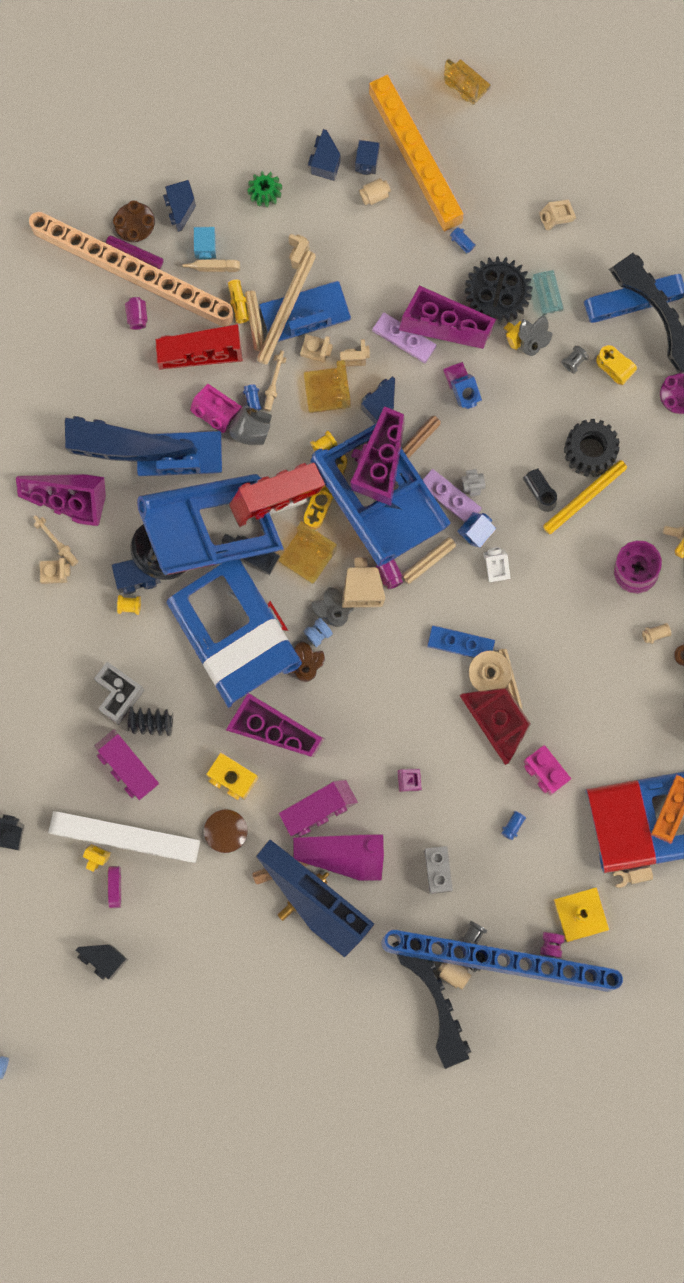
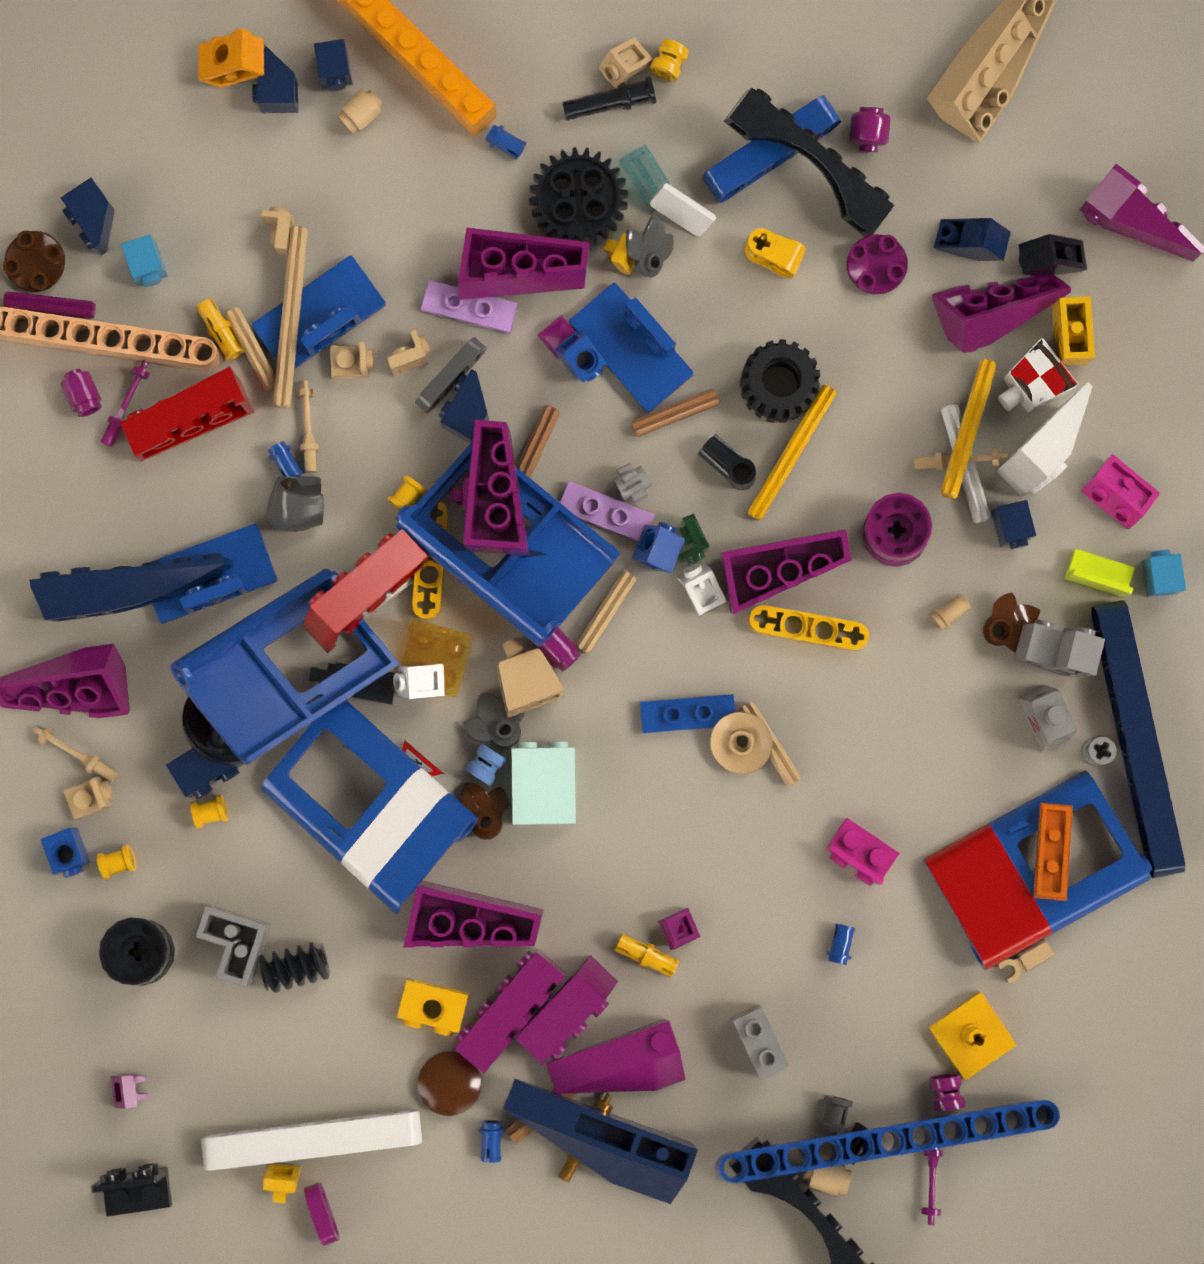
camera: 25 degrees left, 5 degrees up
(14, 765) = (124, 1090): none -> tile
(24, 592) = (53, 845): none -> blue brick
(45, 668) = (124, 938): none -> black wheel
(58, 617) = (116, 862): none -> yellow bush
(125, 765) = (279, 1040): magenta wedge -> none
(151, 338) = (114, 422): none -> magenta piece
(214, 408) = (237, 492): dark pink bracket -> none
(215, 265) = (169, 288): tan piece -> none
(240, 877) = (491, 1140): none -> blue pin
(262, 182) = (195, 148): green gear -> none
(282, 794) = (510, 1010): none -> magenta wedge
(292, 564) = (419, 681): none -> white bracket
(302, 133) = (231, 59): none -> light orange brick
(327, 389) = (386, 415): clear yellow bracket -> none
(351, 657) = (543, 784): none -> light aqua brick
(375, 377) = (450, 374): none -> dark grey beam
(382, 790) = (646, 955): none -> yellow pin
(499, 719) = (774, 804): dark red wing -> none
(502, 529) = (693, 535): none -> clear green bracket
(503, 396) = (633, 346): none -> blue bracket
(516, 447) = (675, 412): none -> medium nougat axle
(530, 982) = (933, 1157): none -> magenta piece
(548, 235) = (623, 96): none -> black pin
(550, 565) = (771, 568): none -> magenta wedge
(556, 617) = (809, 624): none -> yellow beam
(563, 318) = (682, 210): none -> white slope
(574, 360) = (712, 271): dark grey bush -> none
(586, 221) = (669, 60): none -> yellow wheel

